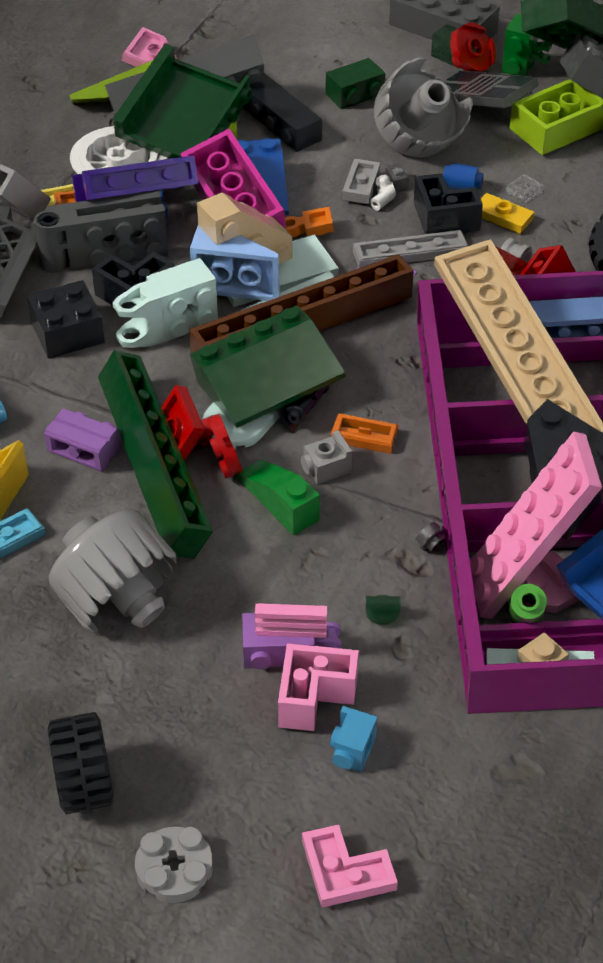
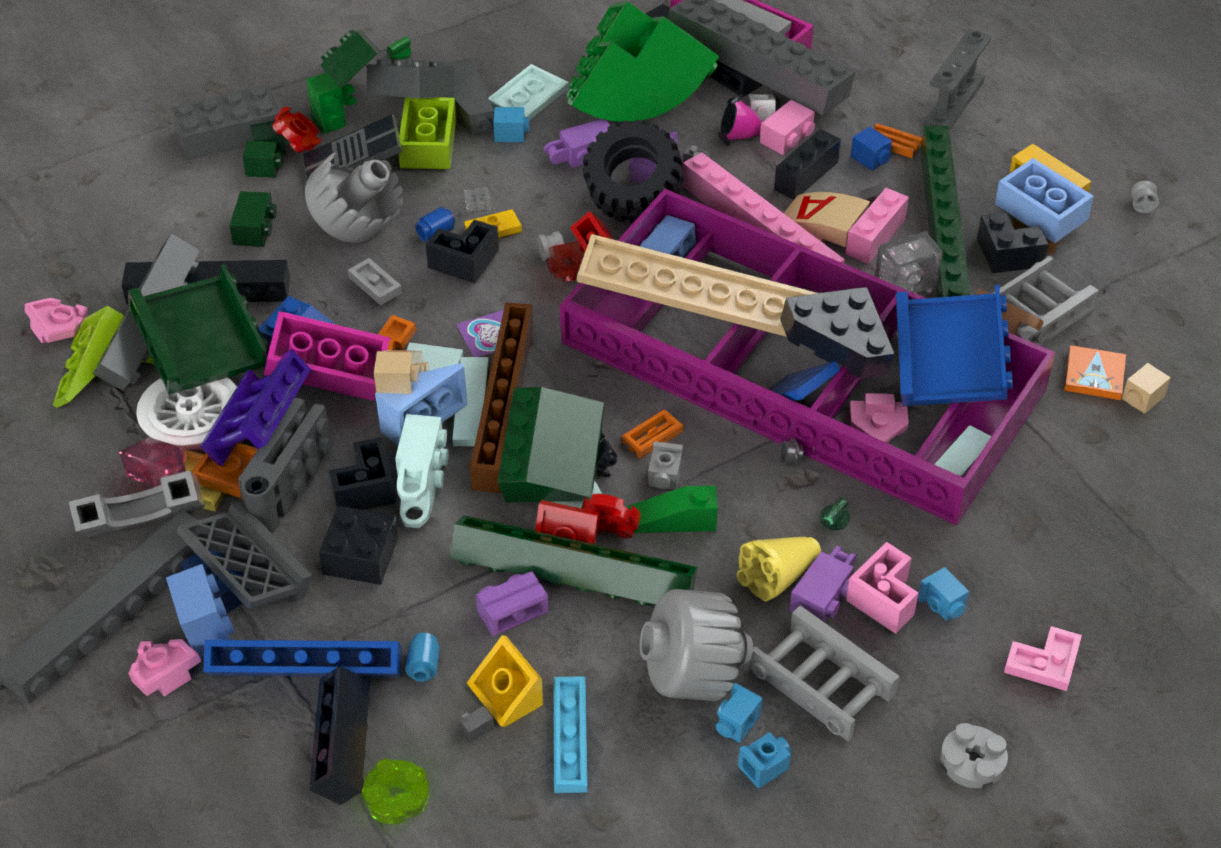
camera: 55 degrees left, 0 degrees up
(41, 695) = (765, 759): none -> dark azure brick
(45, 167) = (152, 460): none -> clear pink brick
(78, 651) = (738, 713): none -> dark azure brick
(80, 763) = (866, 757): black tyre -> none
(204, 708) = (833, 647): none -> light grey fence
(273, 582) = (775, 564): none -> light yellow cone
(291, 620) = (831, 563): bright pink tile -> none
(385, 191) = (401, 275): white arm -> none
(397, 176) = (390, 260): flat silver piece -> none
(410, 248) = (479, 299): light grey tile -> none
(427, 47) = (262, 159): none -> dark green brick
(493, 488) = (802, 383): none -> blue tile
(527, 593) = (913, 431): bright green brick -> none
(534, 524) = (884, 365): bright pink plate -> none
(542, 650) = (957, 451): tan plate -> none

